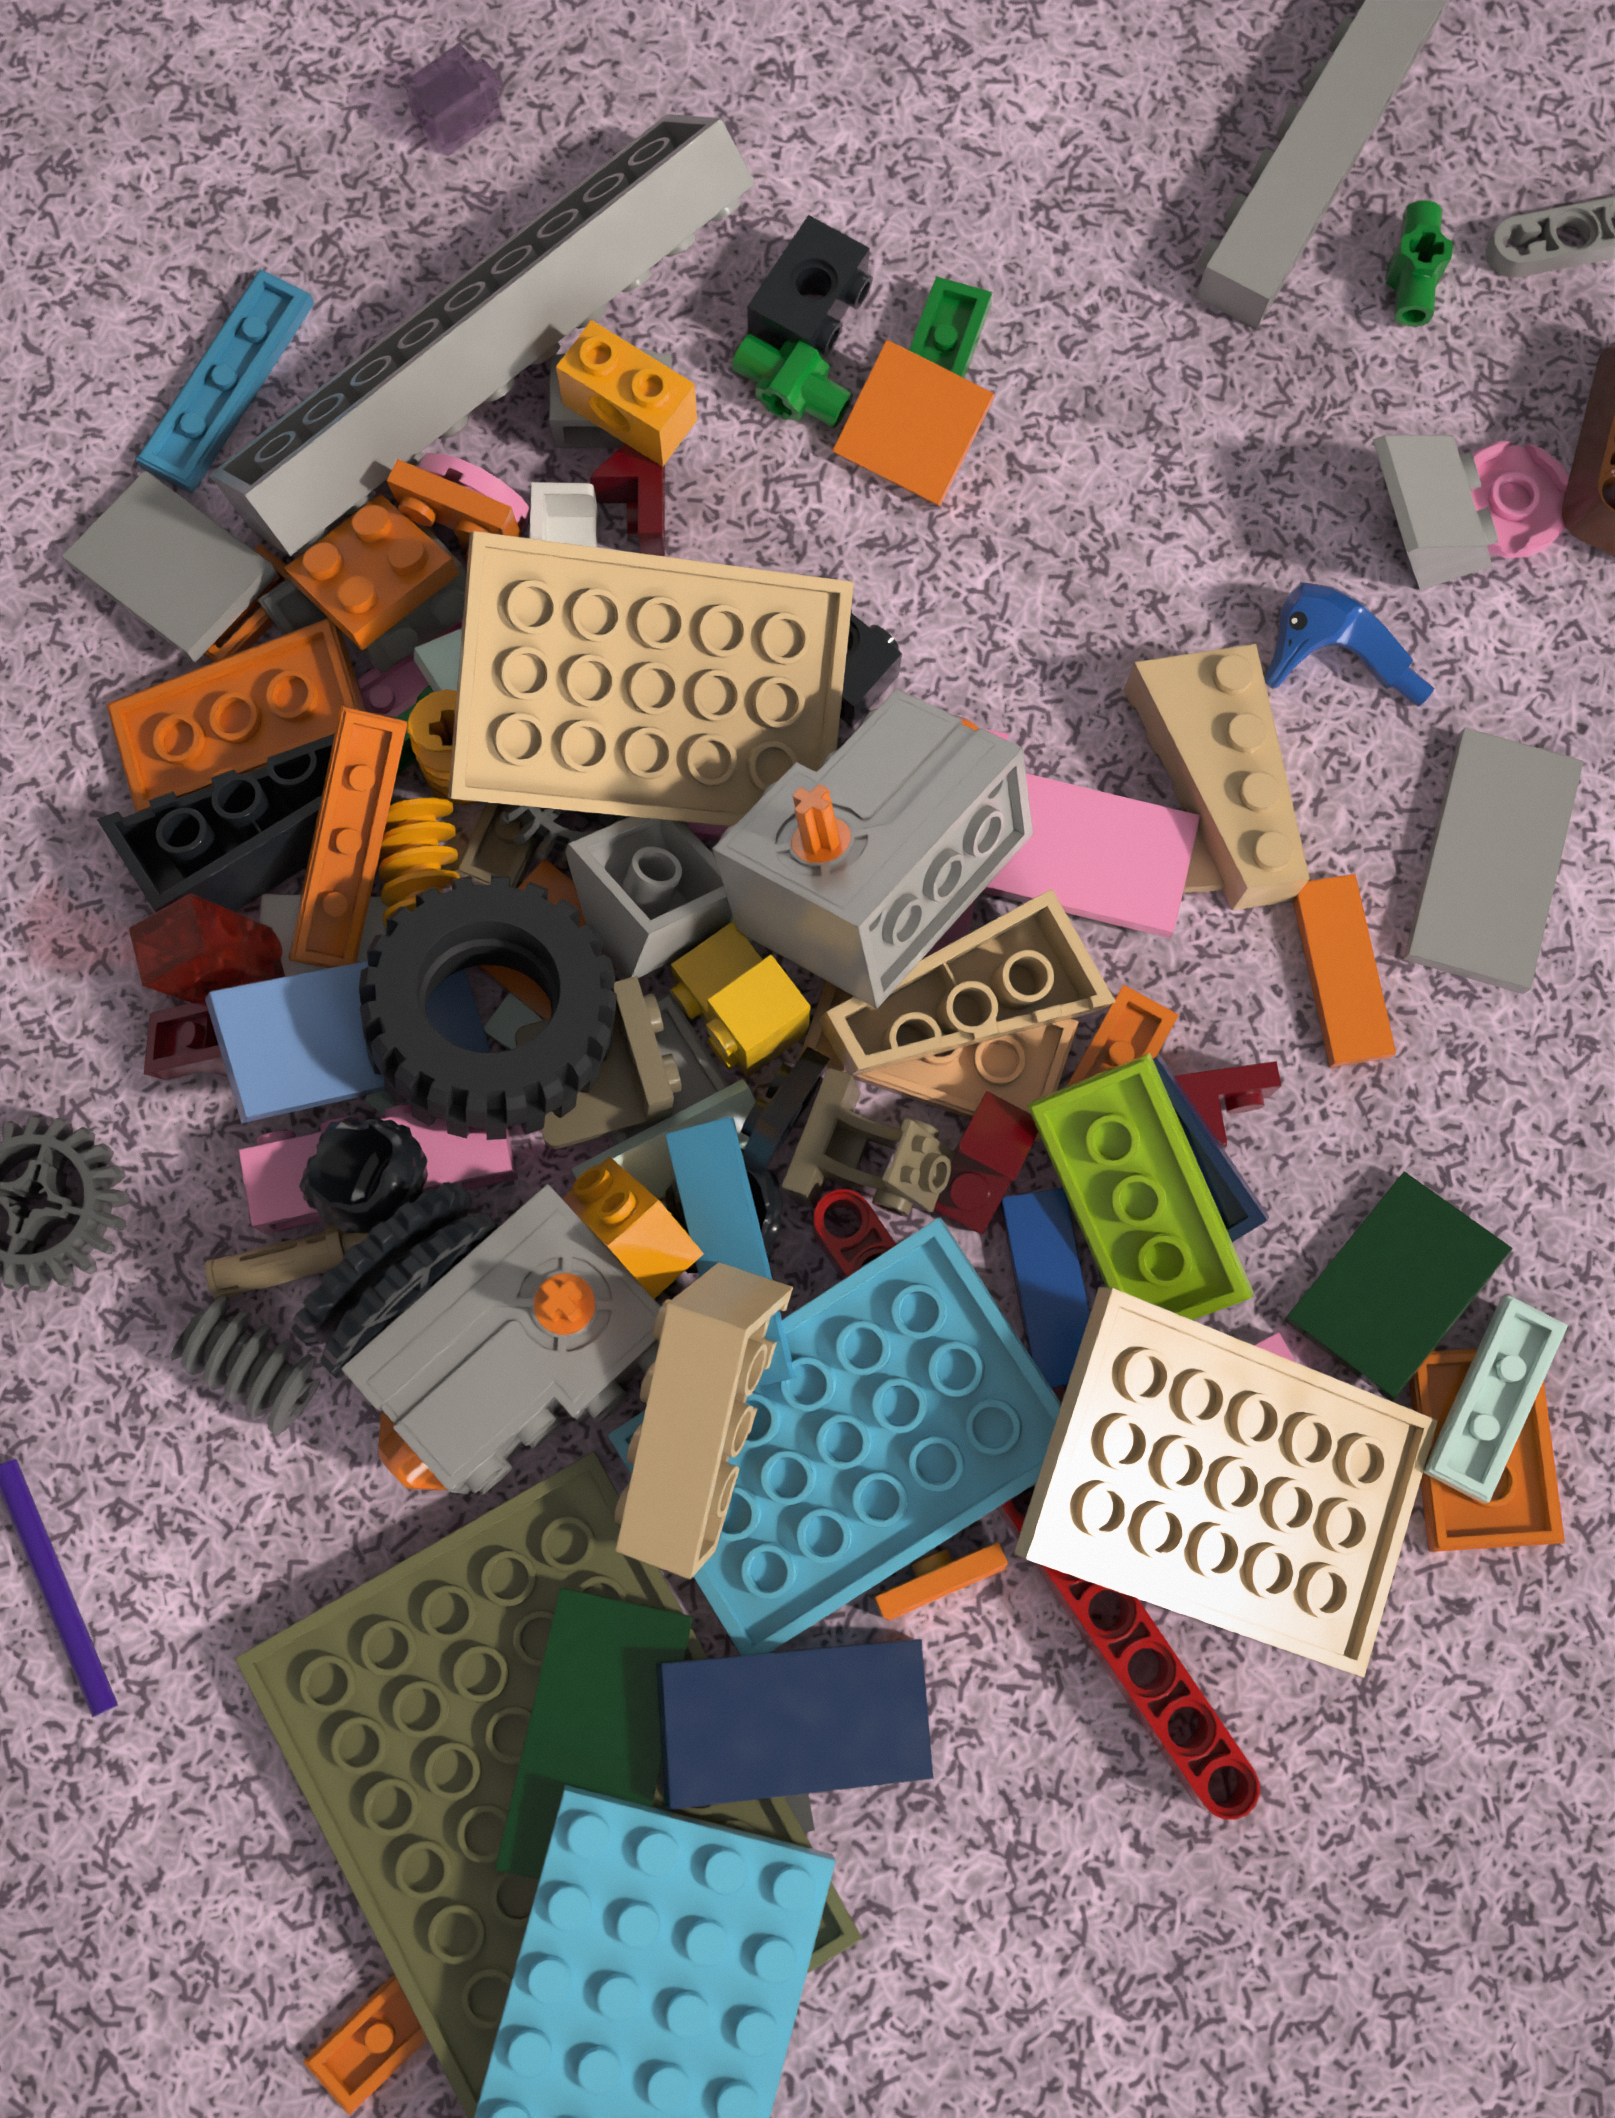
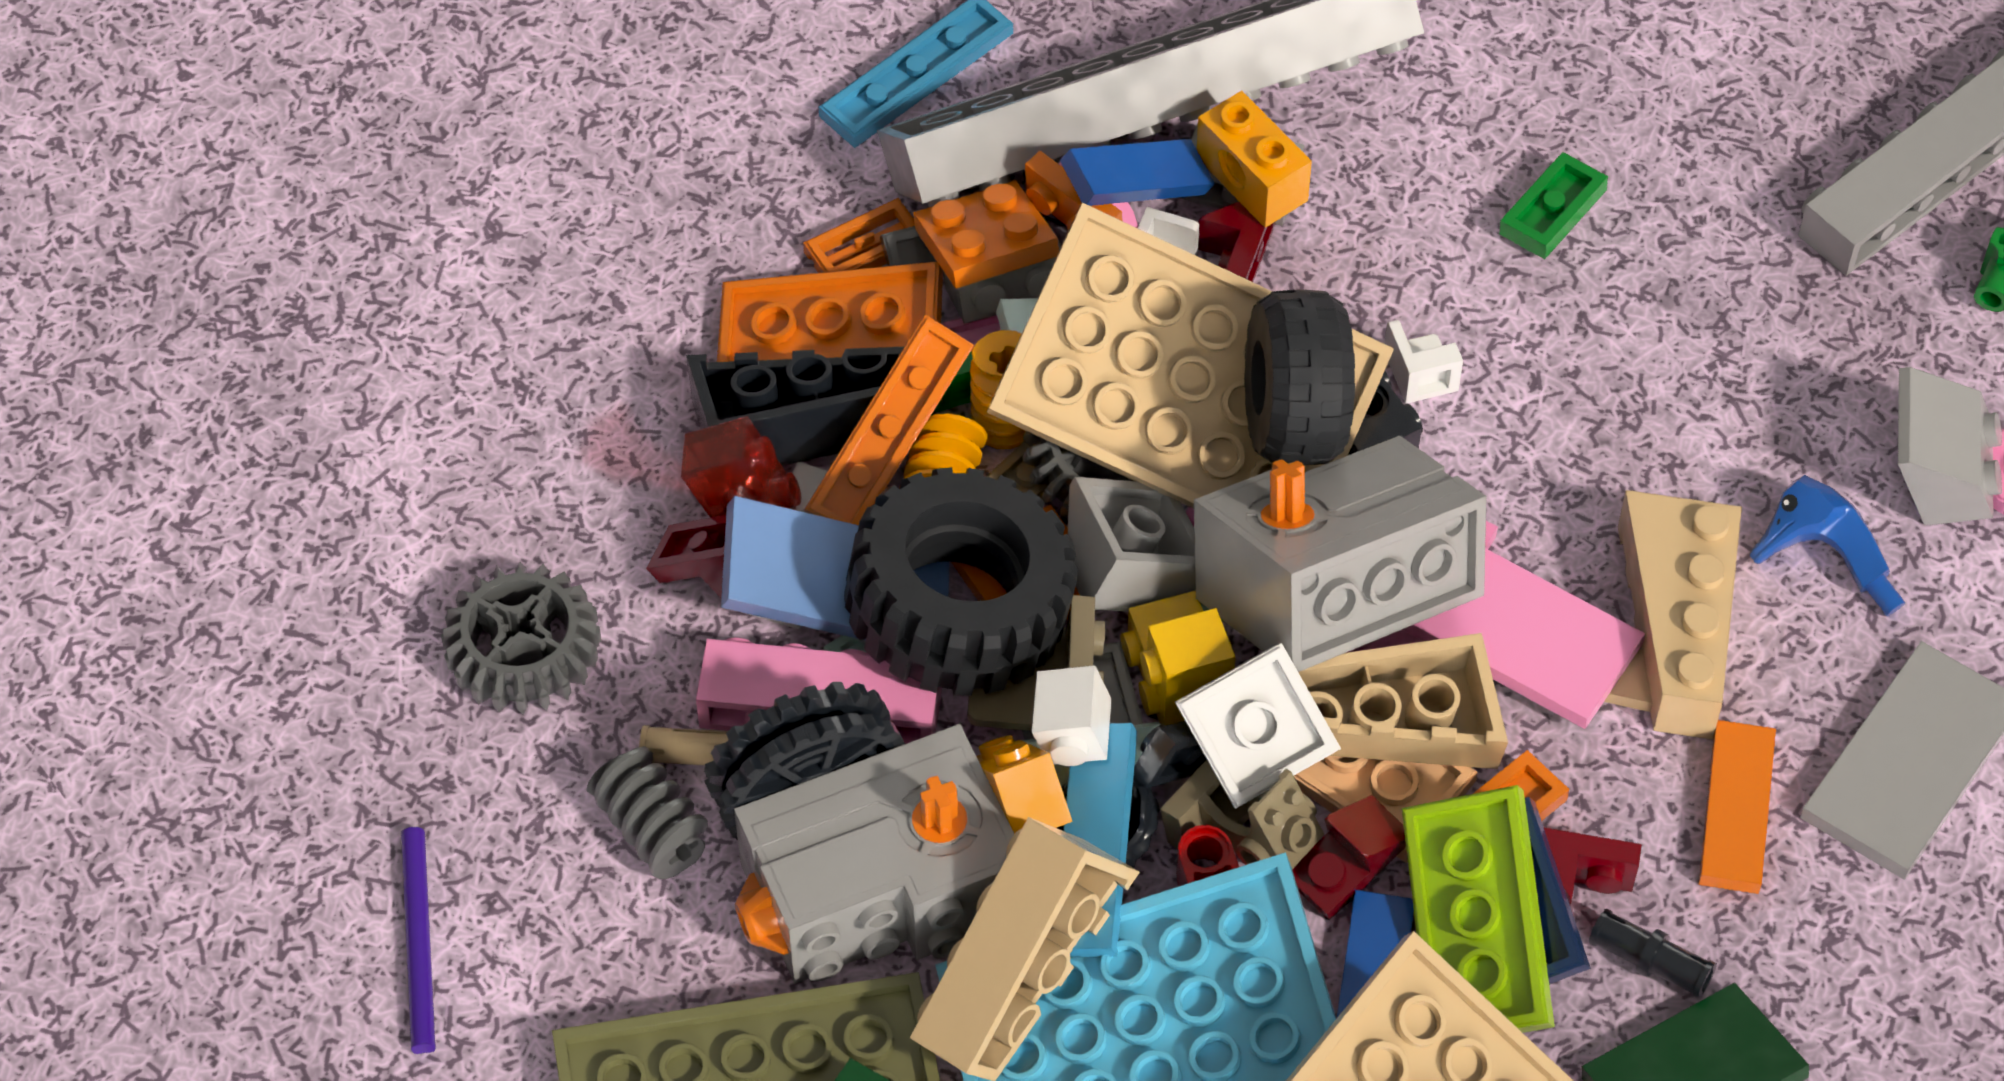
camera: 25 degrees right, 20 degrees down
(170, 565) = (817, 192): light grey tile -> none
(363, 1173) = (802, 663): black hair -> none
(509, 452) = (1137, 172): none -> blue tile
(663, 1137) = (1072, 715): none -> white brick
(778, 664) = (1299, 377): none -> black tyre
(792, 380) = (1405, 199): green axle -> none
(818, 263) = (1445, 135): black brick -> none
(858, 1076) = (1257, 724): none -> white tile
(873, 567) = (1422, 364): none -> white panel
(913, 422) = (1500, 259): orange tile -> none
(1315, 1166) = (1652, 953): none -> black pin

